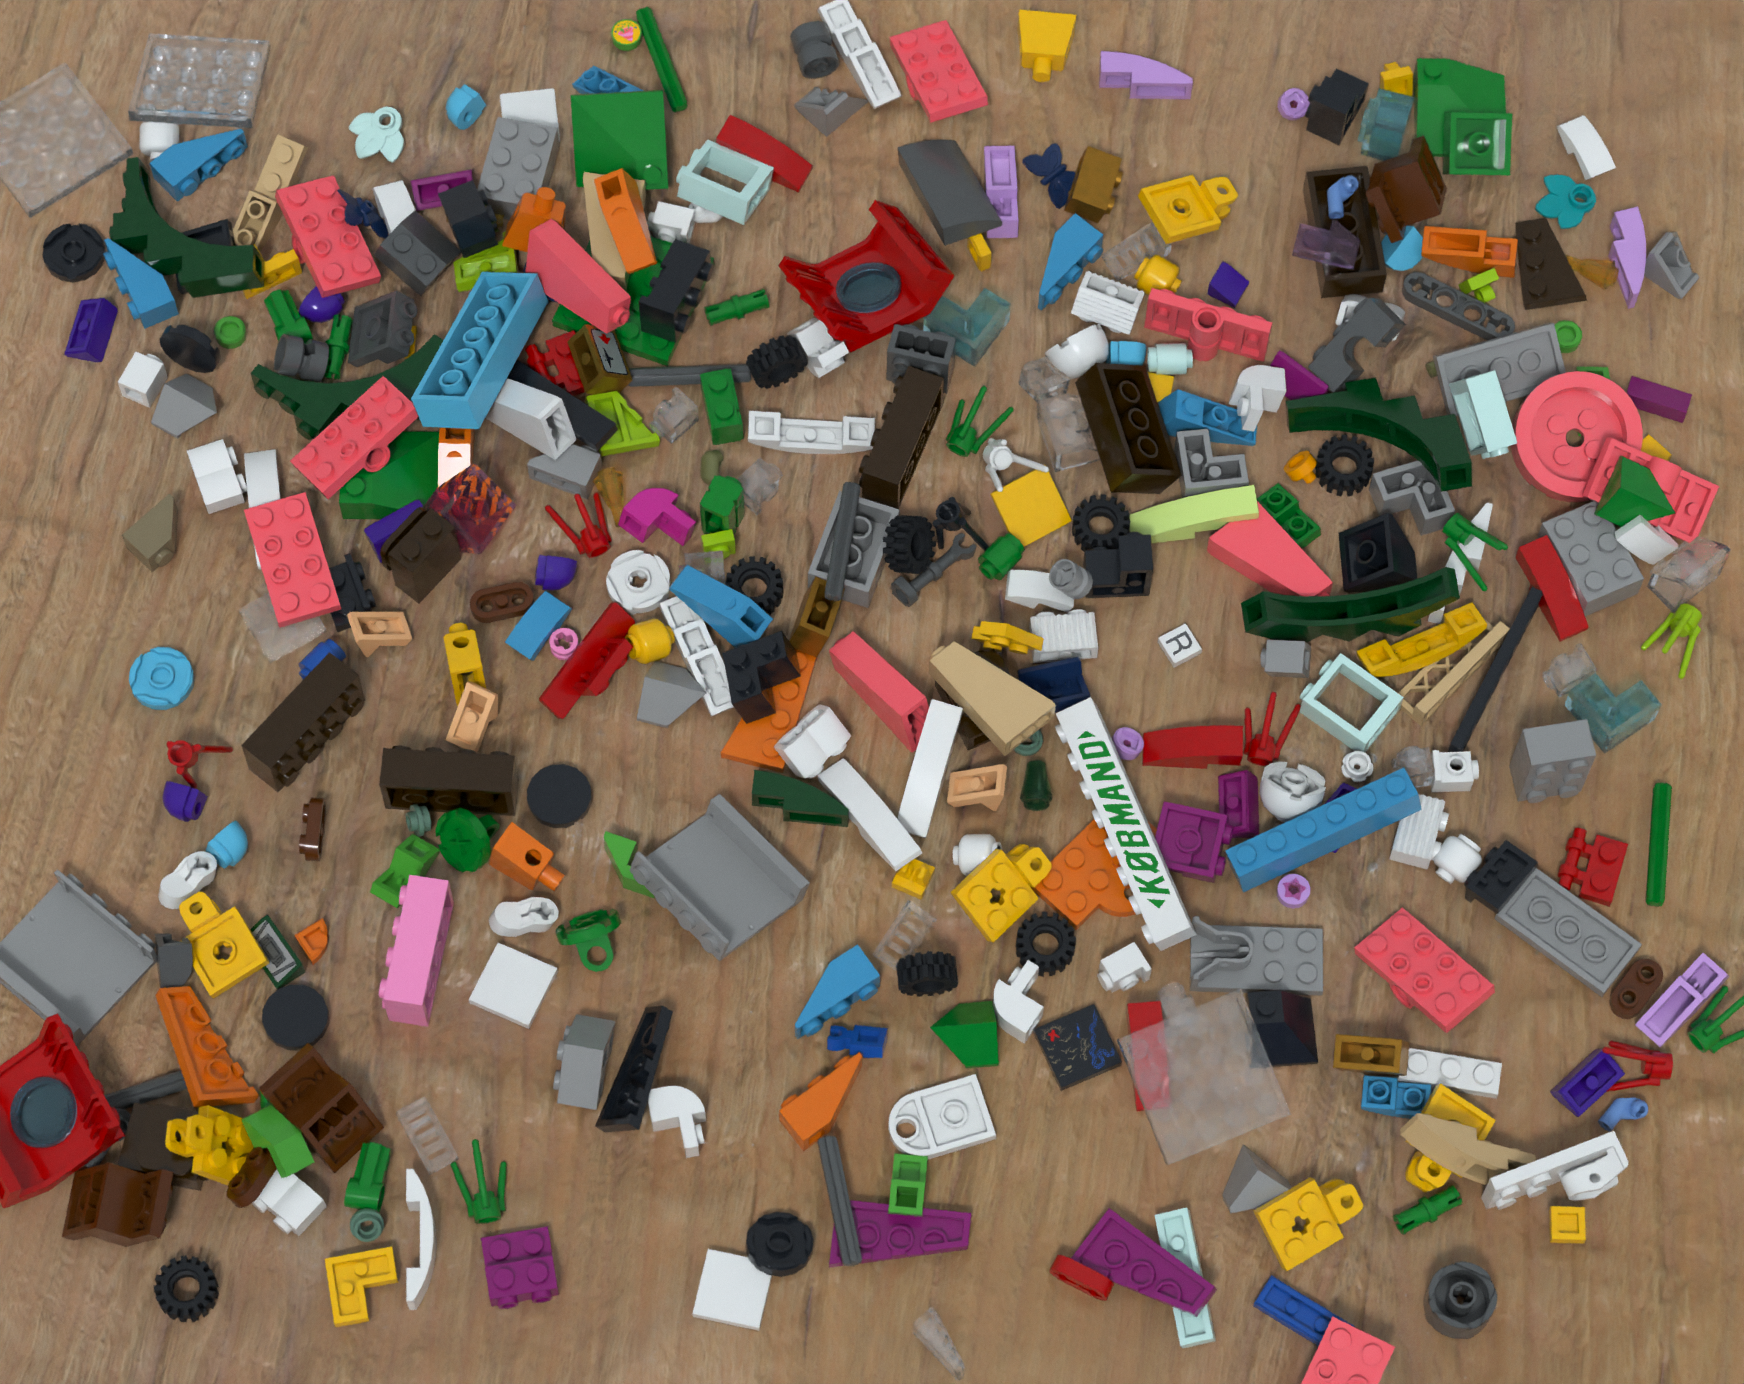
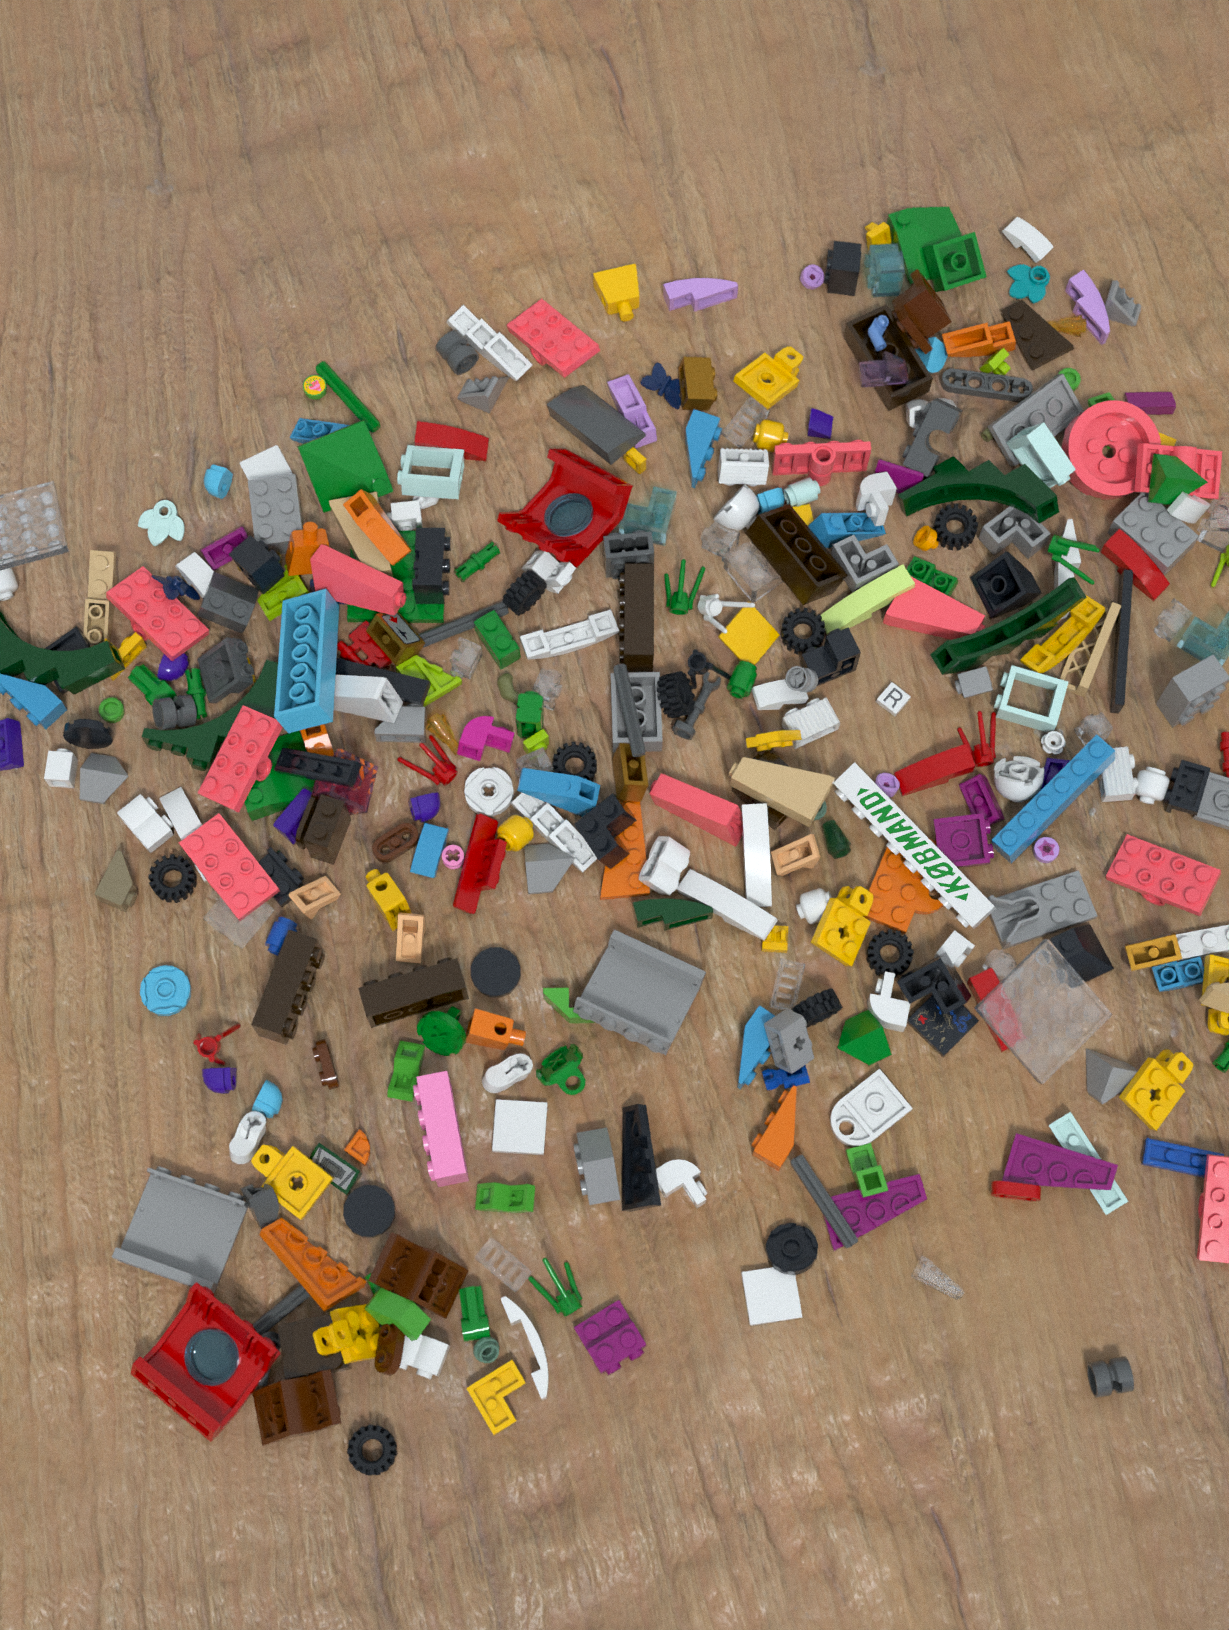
camera: 20 degrees left, 5 degrees up
(192, 162) = (30, 593): dark azure slope -> none
(217, 535) = (163, 867): none -> black tyre
(418, 820) = (400, 1028): sand green plate -> none
(440, 477) = (318, 767): none -> black tile
(460, 1060) = (505, 1198): none -> bright green slope
(875, 997) = (789, 1041): none -> light grey brick
(1057, 681) = (821, 758): dark blue bracket -> none
(1088, 989) = (939, 978): none -> black brick
(1450, 780) = (1121, 728): white brick -> none

